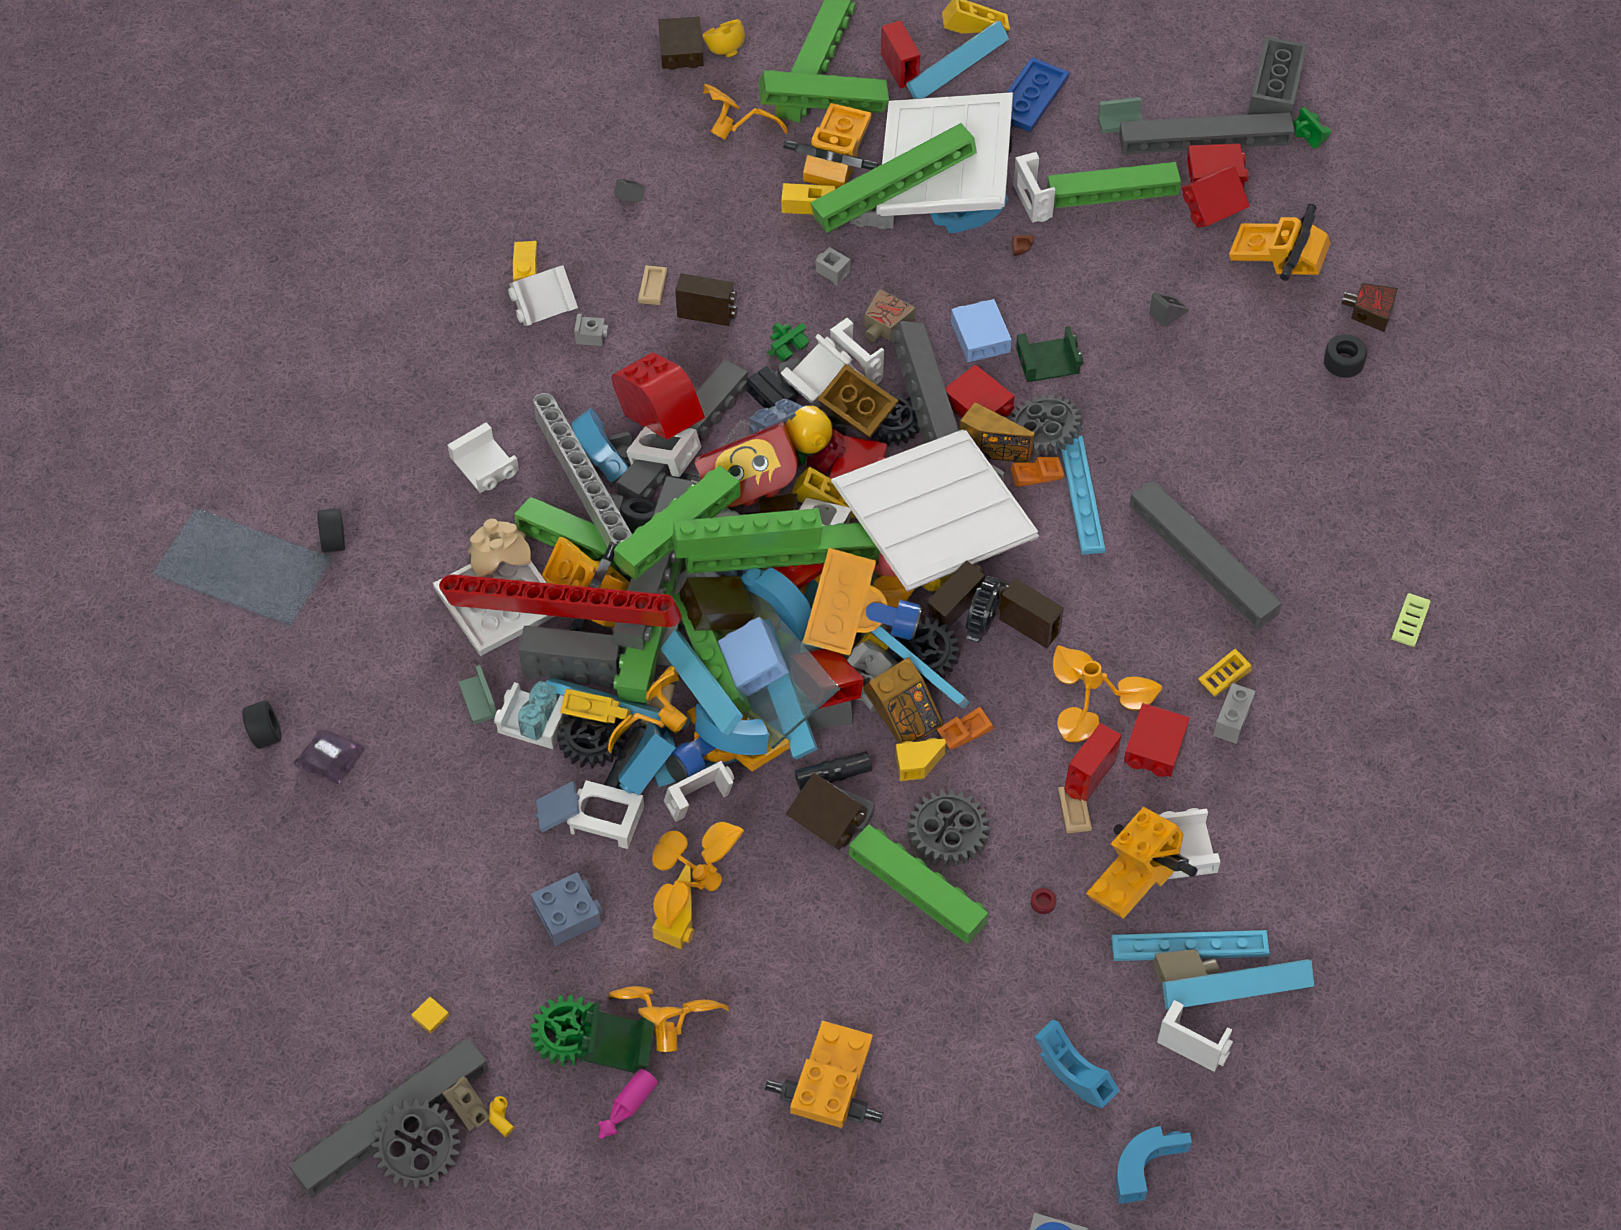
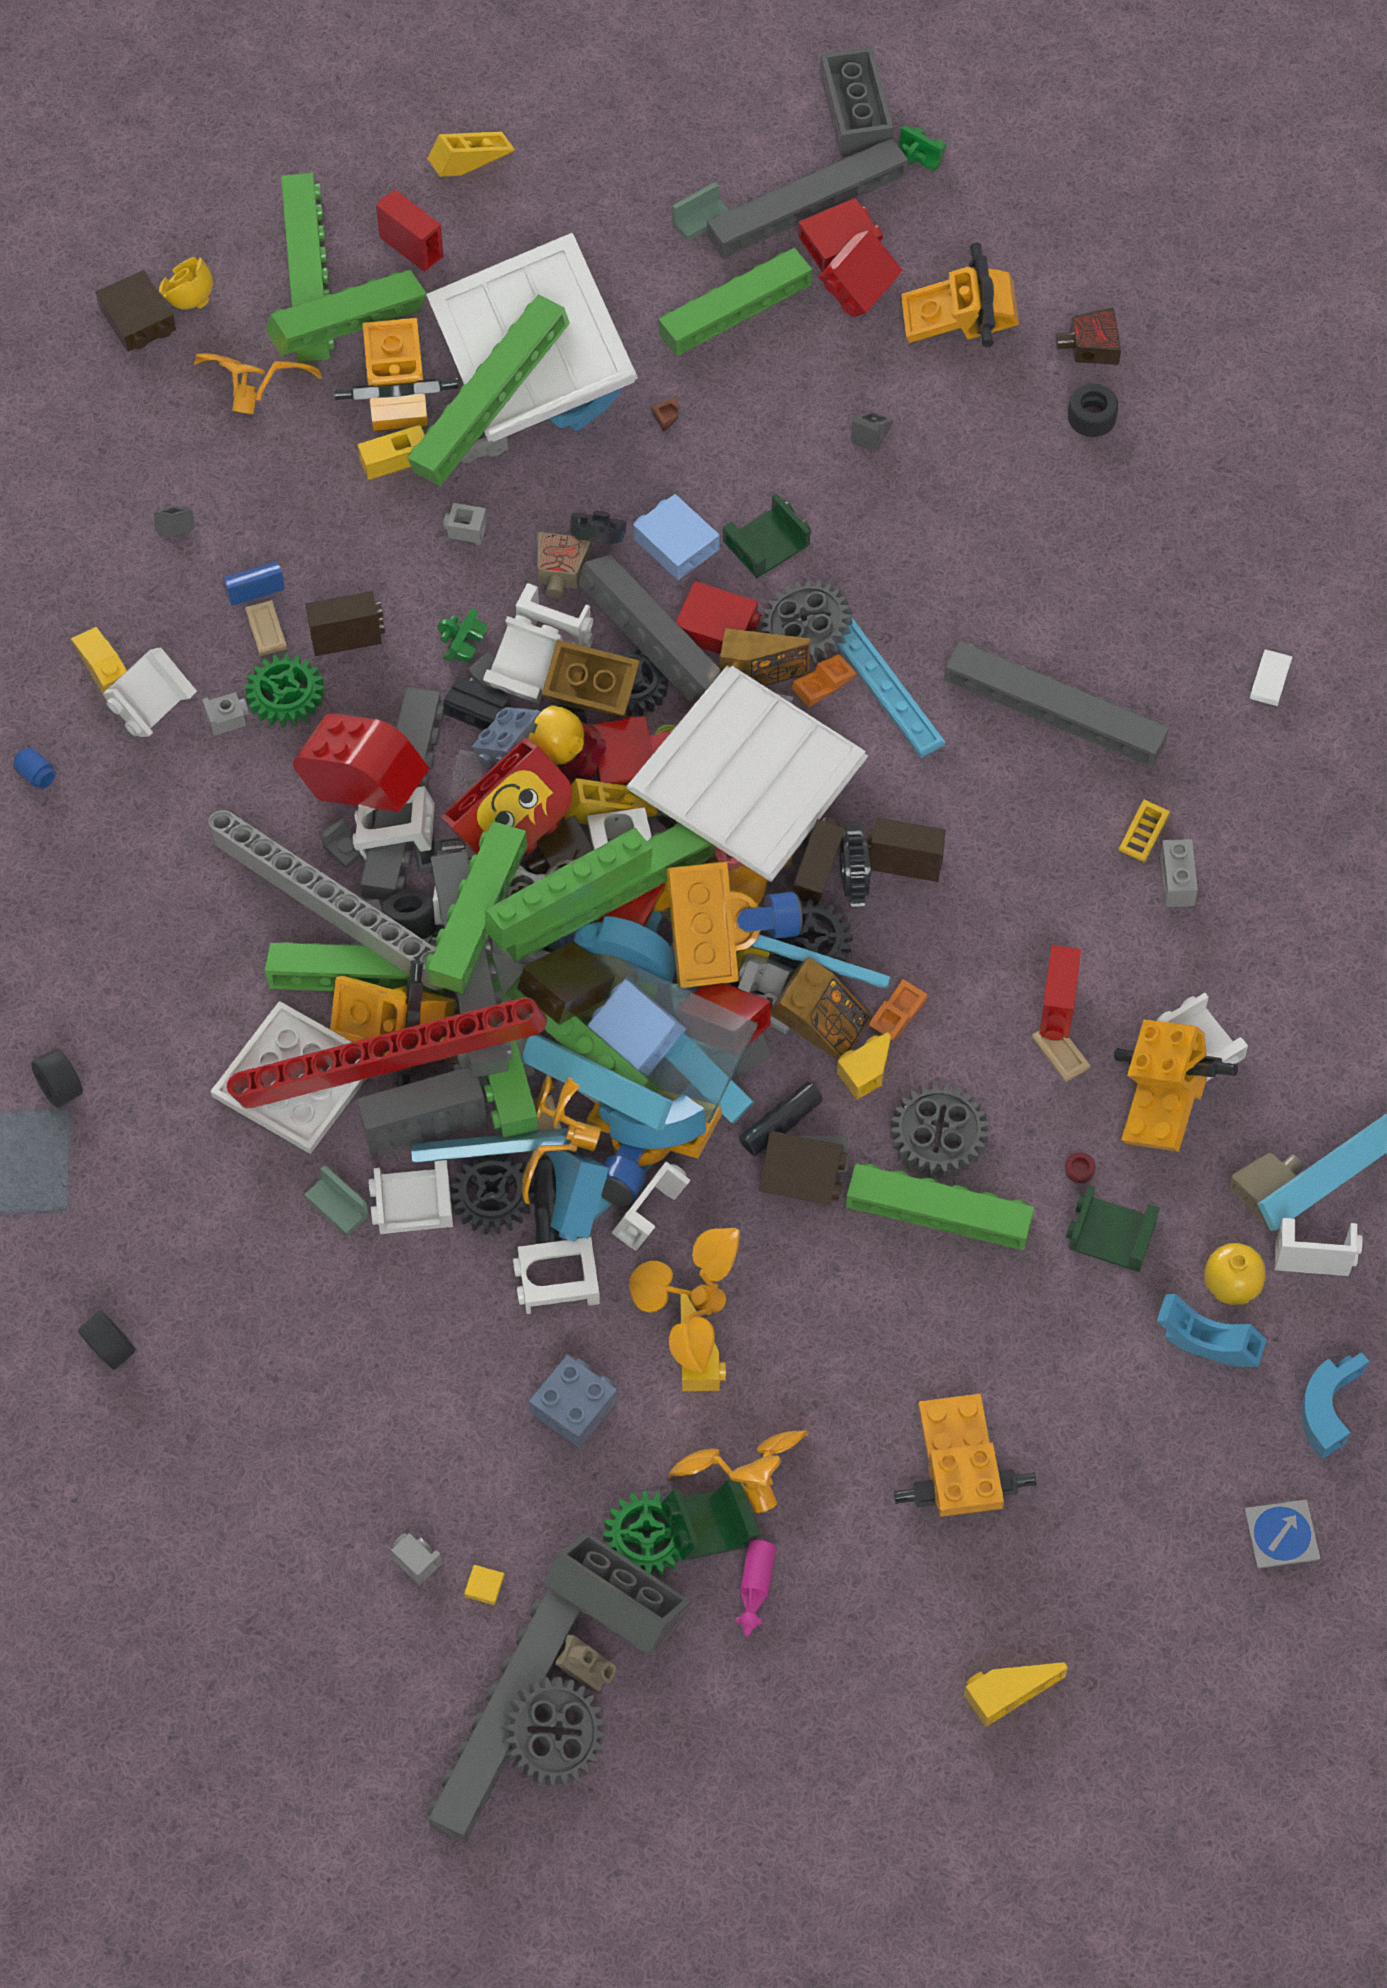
camera: 25 degrees left, 5 degrees up
(329, 756) = (203, 1342): clear purple slope -> none
(390, 972) = (415, 1557): none -> light grey brick
(438, 317) = (34, 768): none -> blue brick
(482, 458) = (184, 920): white panel -> none
(495, 544) = (263, 1016): tan brick -> none
(497, 1116) = (618, 1656): yellow arm -> none
(517, 1061) = (616, 1592): none -> dark grey brick
(537, 711) = (419, 1189): clear light blue brick -> none
(557, 806) = (500, 1289): sand blue piece -> none
(592, 707) = (482, 1160): yellow hinge -> none
(594, 441) = (314, 848): dark azure arch -> none
(640, 336) = (281, 684): none -> green gear
(660, 251) = (253, 583): none -> blue brick
(927, 303) = (597, 526): none -> black plate
(957, 61) = (477, 213): medium azure tile -> none
(1026, 178) = (633, 328): white panel -> none
(1034, 92) = (586, 212): blue plate -> none
(1042, 957) = (1112, 1231): none -> dark green panel
(1072, 665) = (979, 888): light orange plant -> none
(1122, 1031) = (1235, 1274): none -> yellow cylinder
(1156, 740) = (1111, 938): red brick -> none
(1208, 944) = (1277, 1139): medium azure tile -> none
(1384, 599) = (1271, 677): none -> white slope
(1418, 607) = (1305, 673): yellowish green slope -> none

